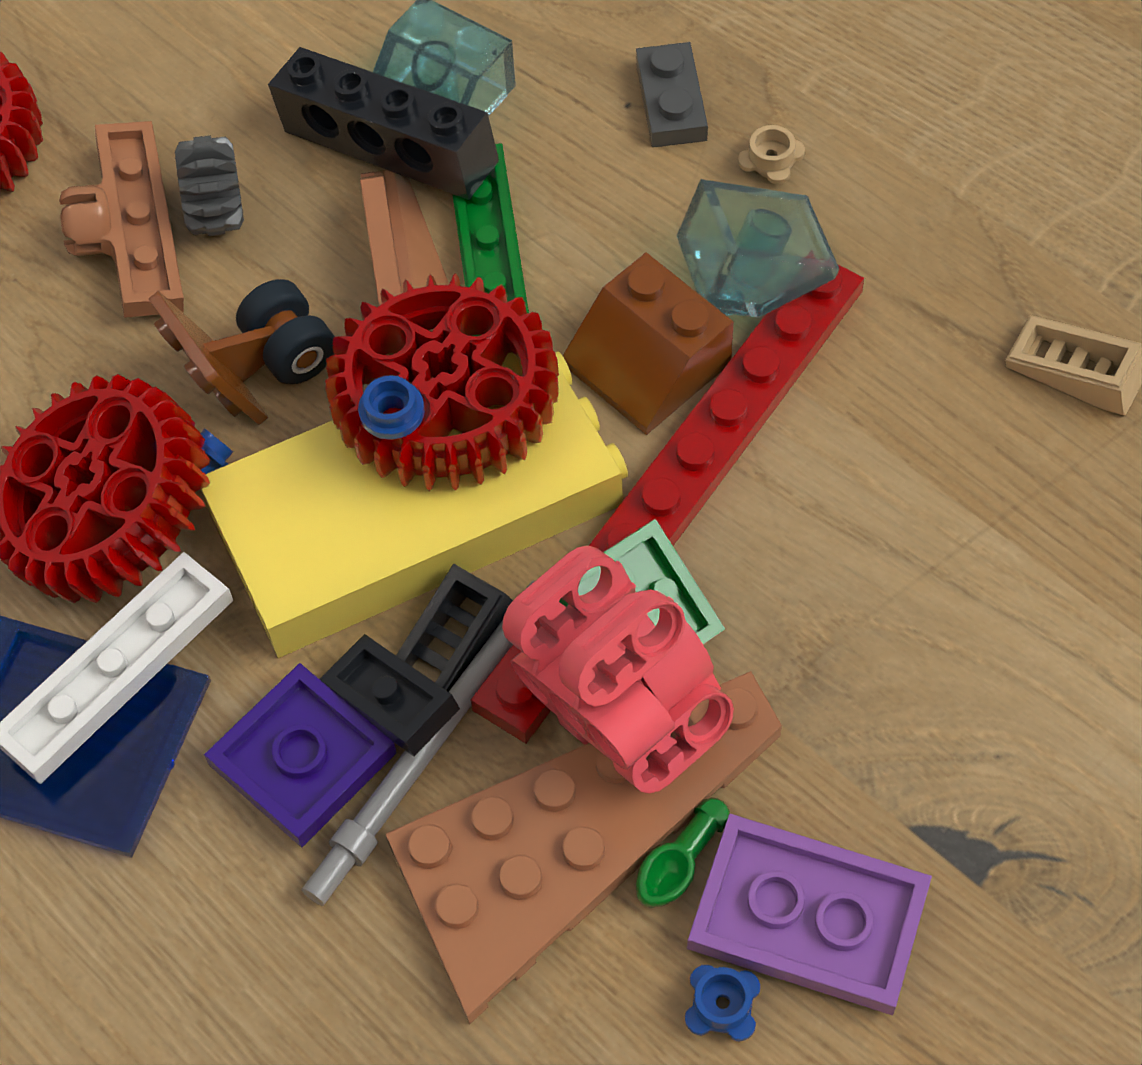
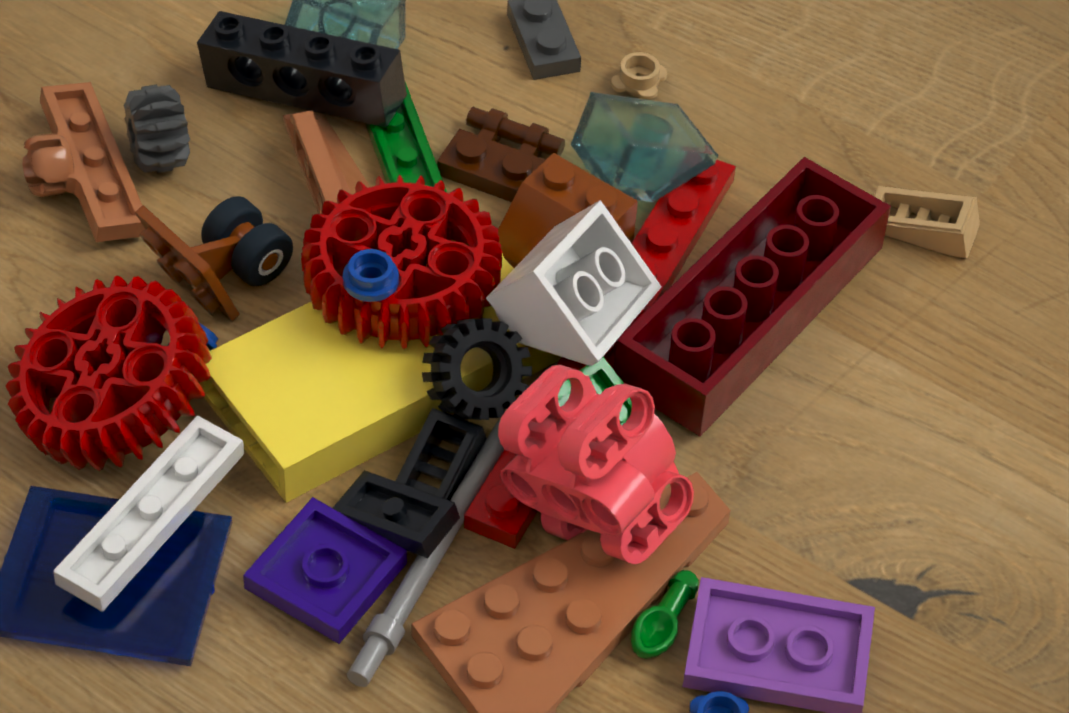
camera: 15 degrees left, 10 degrees down
(474, 504) = (446, 364): none -> black tyre
(582, 254) = (492, 166): none -> reddish brown plate
(637, 435) = (576, 288): none -> white slope
(850, 450) = (751, 294): none -> dark red brick

